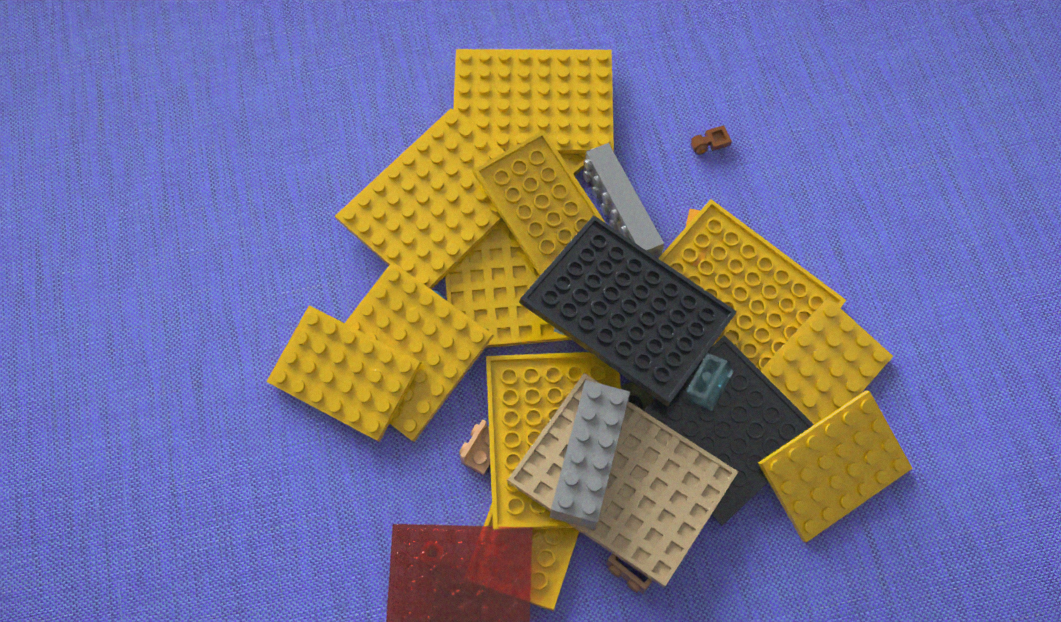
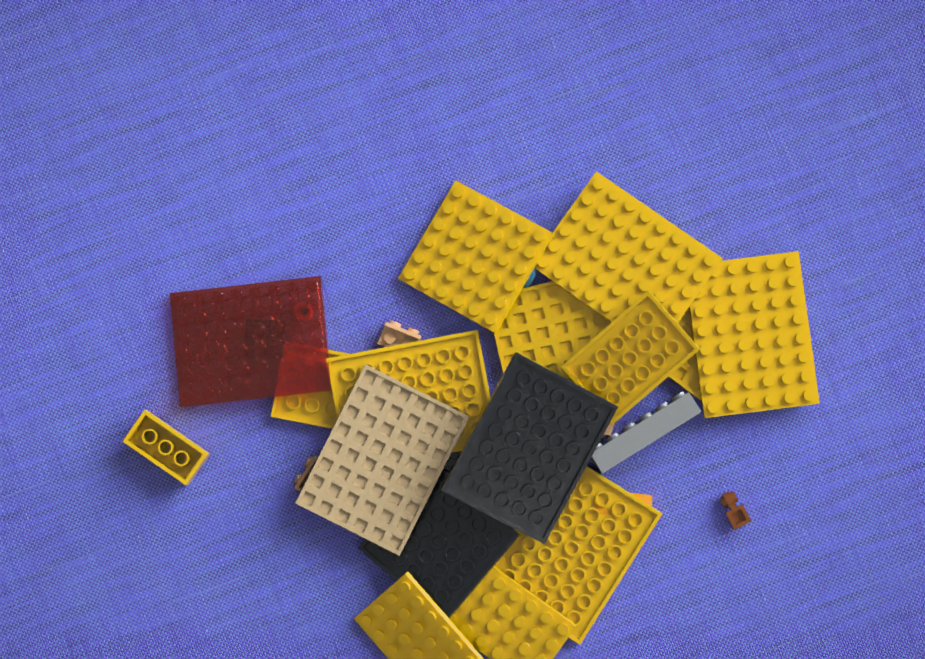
camera: 85 degrees right, 20 degrees up
(344, 373) = (447, 209): yellow plate -> none
(589, 455) = (393, 429): light grey brick -> none
(709, 381) = (470, 524): clear light blue brick -> none

